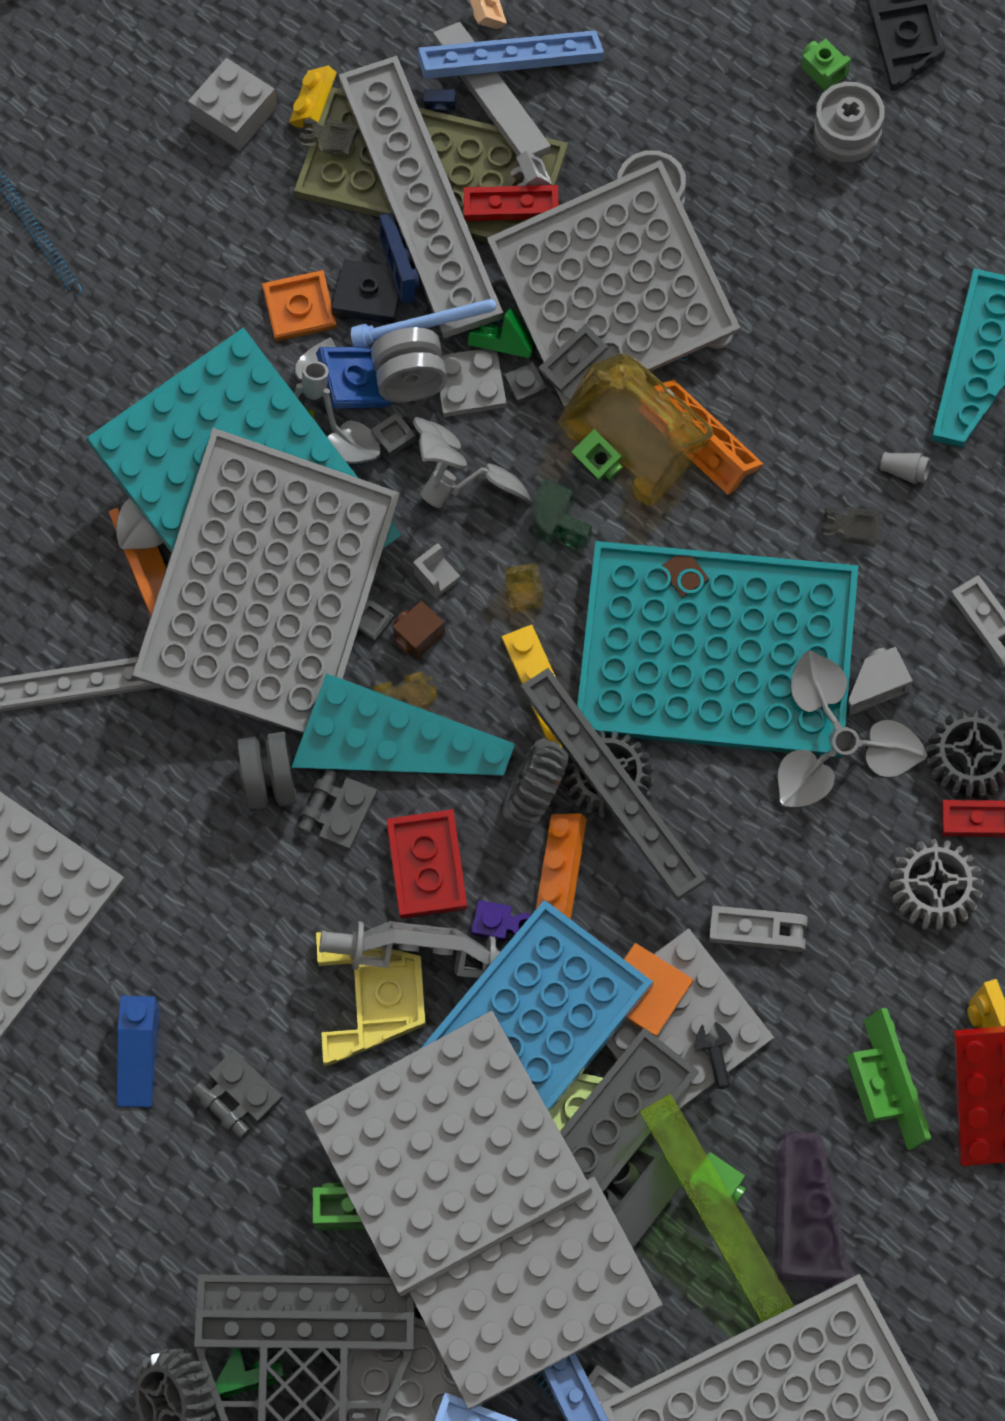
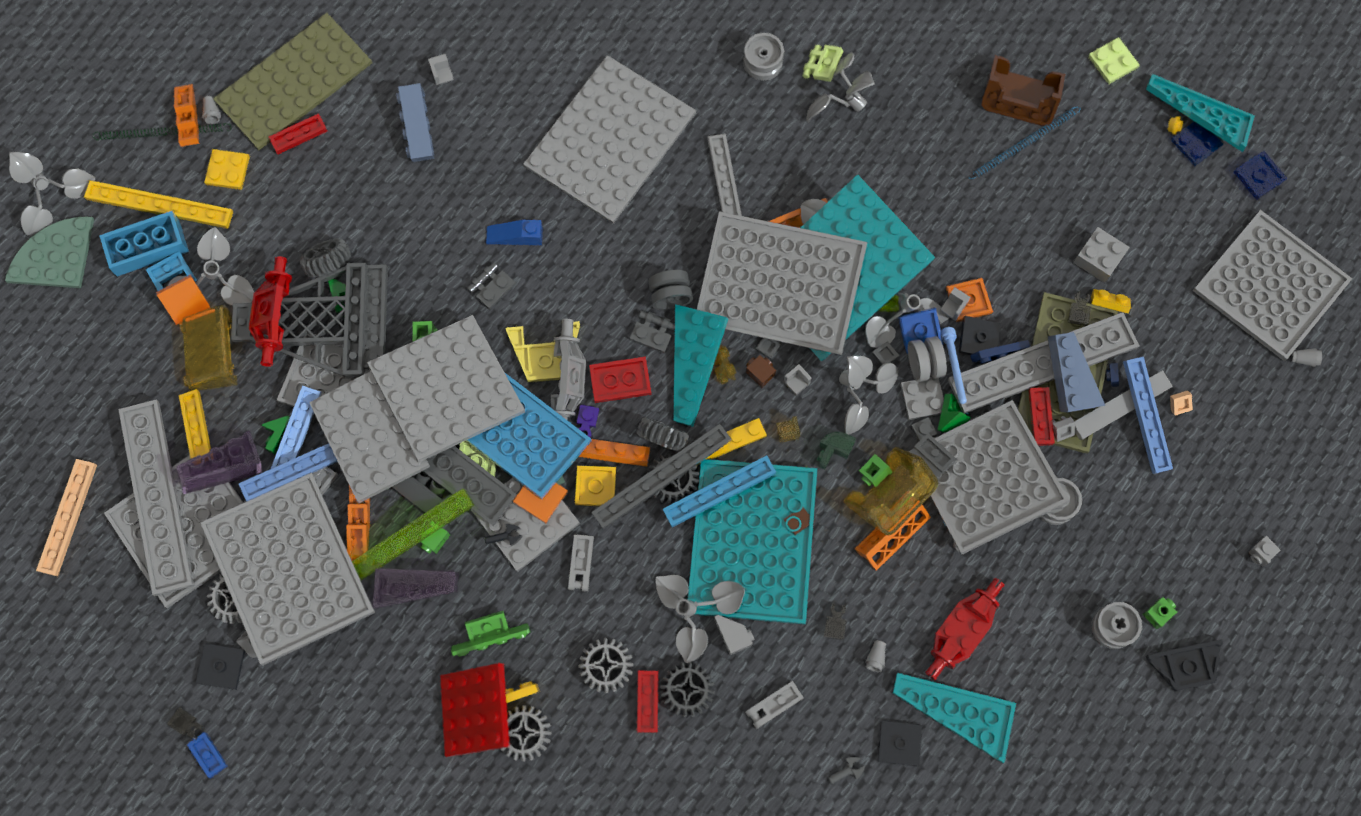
camera: 85 degrees right, 5 degrees up
(311, 320) = (955, 304): none -> light grey panel
(447, 148) = (1072, 375): none -> sand blue wedge
(621, 904) = (594, 485): none -> yellow plate
(636, 694) = (719, 491): none -> dark azure plate
(693, 1322) = (357, 526): none -> orange slope
(857, 337) = (964, 628): none -> red plate

